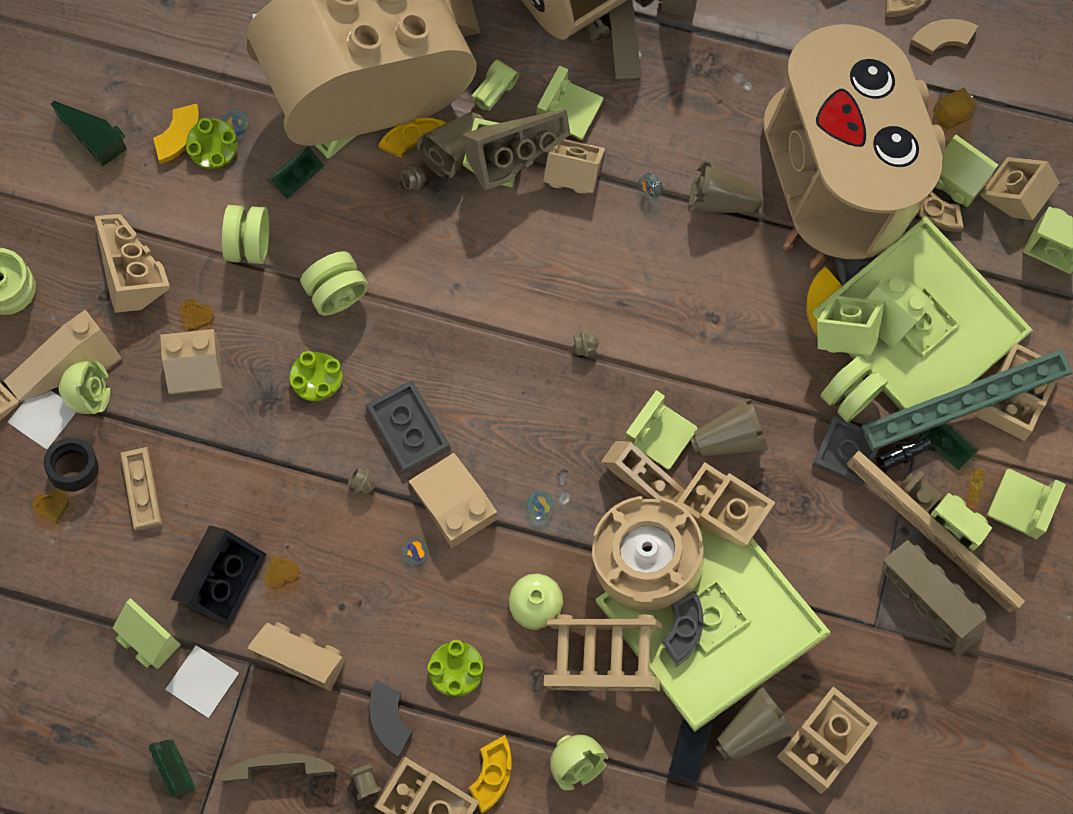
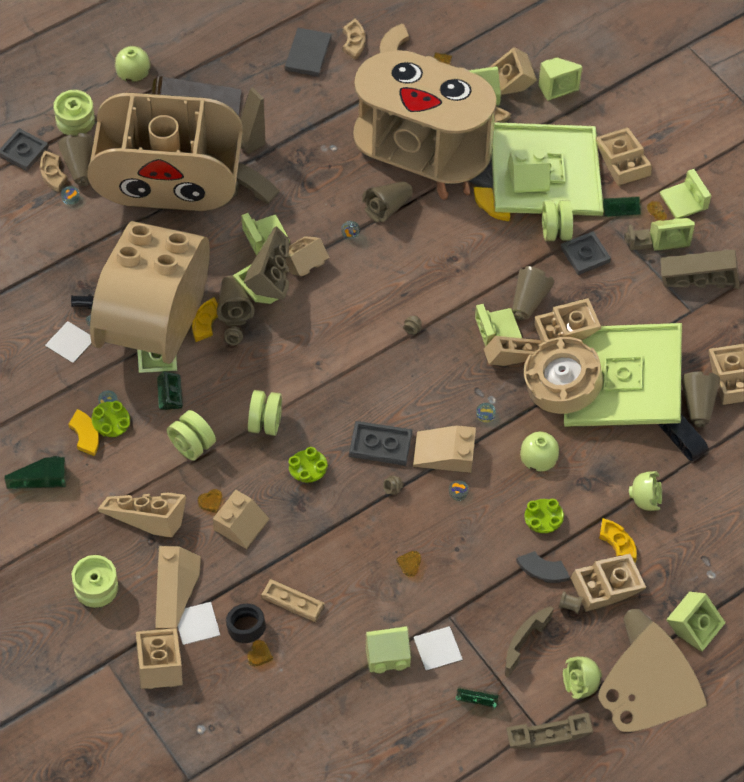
camera: 50 degrees left, 15 degrees down
(85, 387) = (203, 584): yellowish green cylinder -> none
(218, 575) = (383, 593): black slope -> none
(297, 655) = (470, 584): tan slope -> none
(498, 80) = (217, 259): yellowish green piece -> none
(615, 679) = (610, 452): tan fence -> none
(686, 629) = (621, 387): dark grey tile -> none
(850, 325) = (523, 194): yellowish green slope -> none
(904, 452) = (610, 228): black pin -> none
(935, 532) = (665, 245): tan tile -> none
(966, 400) = (608, 179): sand green tile -> none

